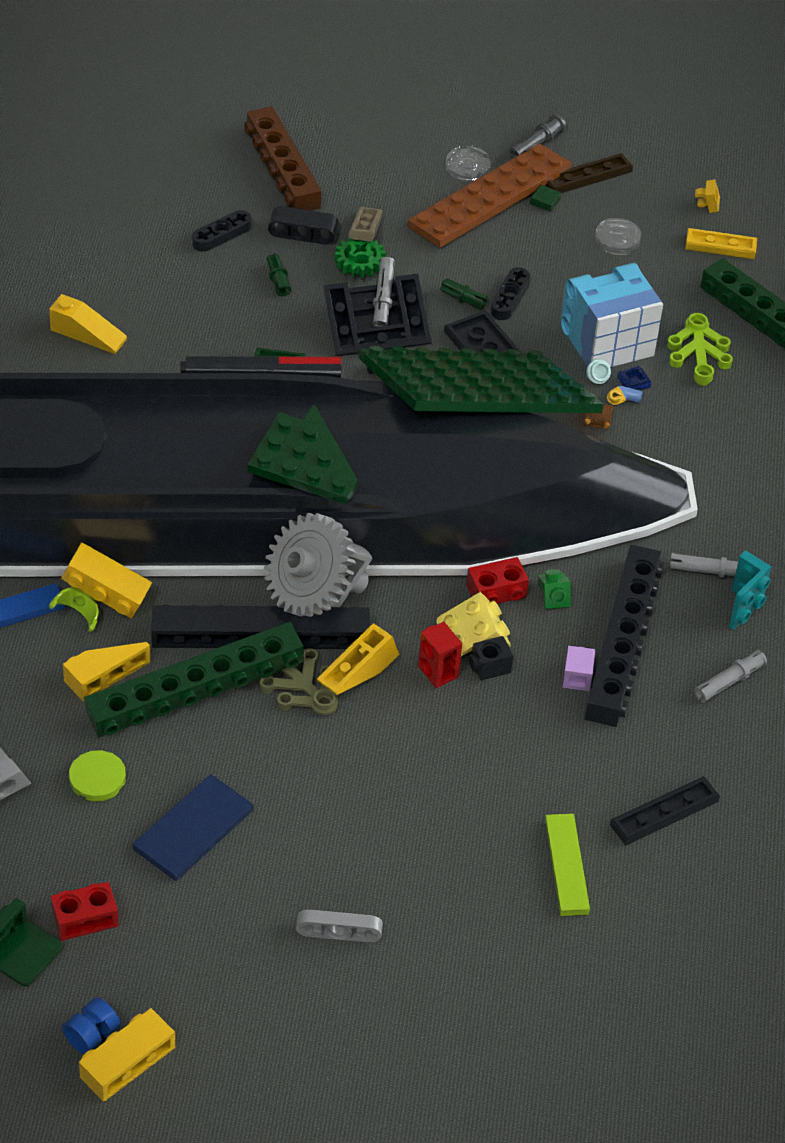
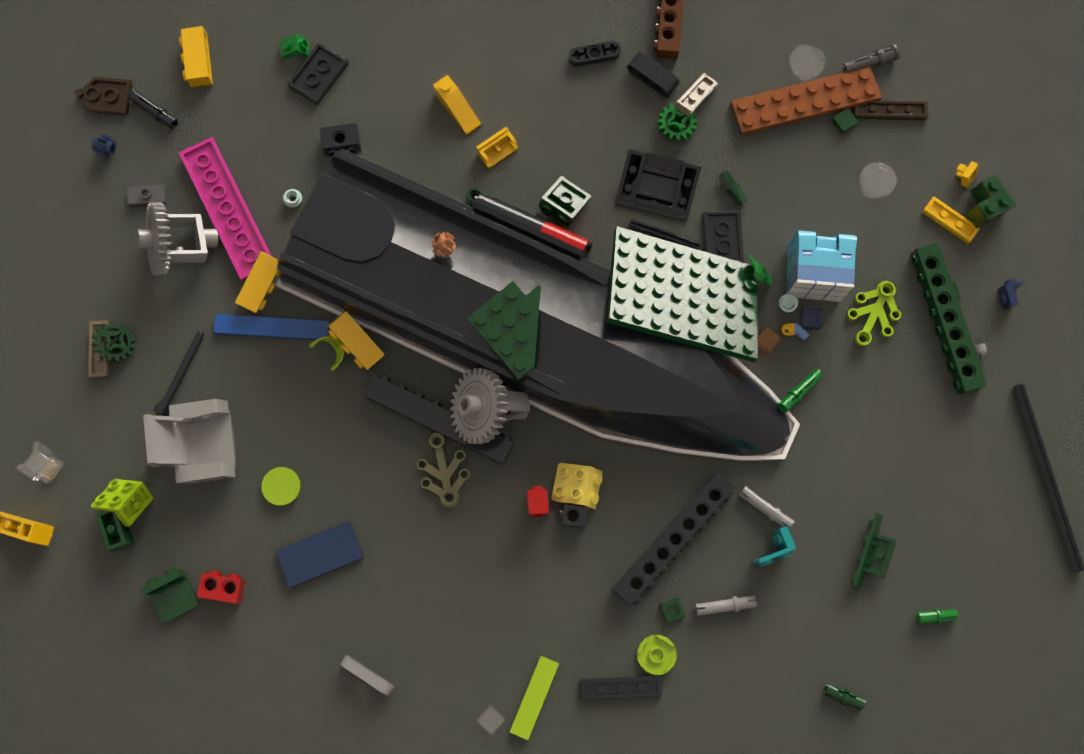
camera: 30 degrees right, 30 degrees up
(94, 1022) = (179, 676): blue wheel -> none
(103, 667) = (317, 405): yellow slope -> none
(126, 1054) = (195, 703): yellow brick -> none
(161, 348) = (497, 148): none -> yellow hinge
(175, 404) = (443, 244): none -> nougat gear
(201, 668) = (304, 438): dark green brick -> none
(278, 275) = (611, 113): dark green axle -> none
(360, 661) = (484, 481): yellow slope -> none
(383, 297) = (674, 164): light grey pin -> none
(498, 580) = (613, 450): red brick -> none
(510, 286) = (760, 213): black beam -> none
(528, 911) = (491, 719): none -> clear tile
(550, 348) = (760, 273): none -> green plate
(555, 588) = (649, 477): green bracket -> none
(579, 668) = (627, 551): lavender brick -> none
(662, 444) = (795, 395): none -> green pin
(671, 708) = (672, 610): none -> dark green tile
(683, 759) = (656, 655): none -> lime tile
(751, 208) = (992, 201): none -> dark green brick

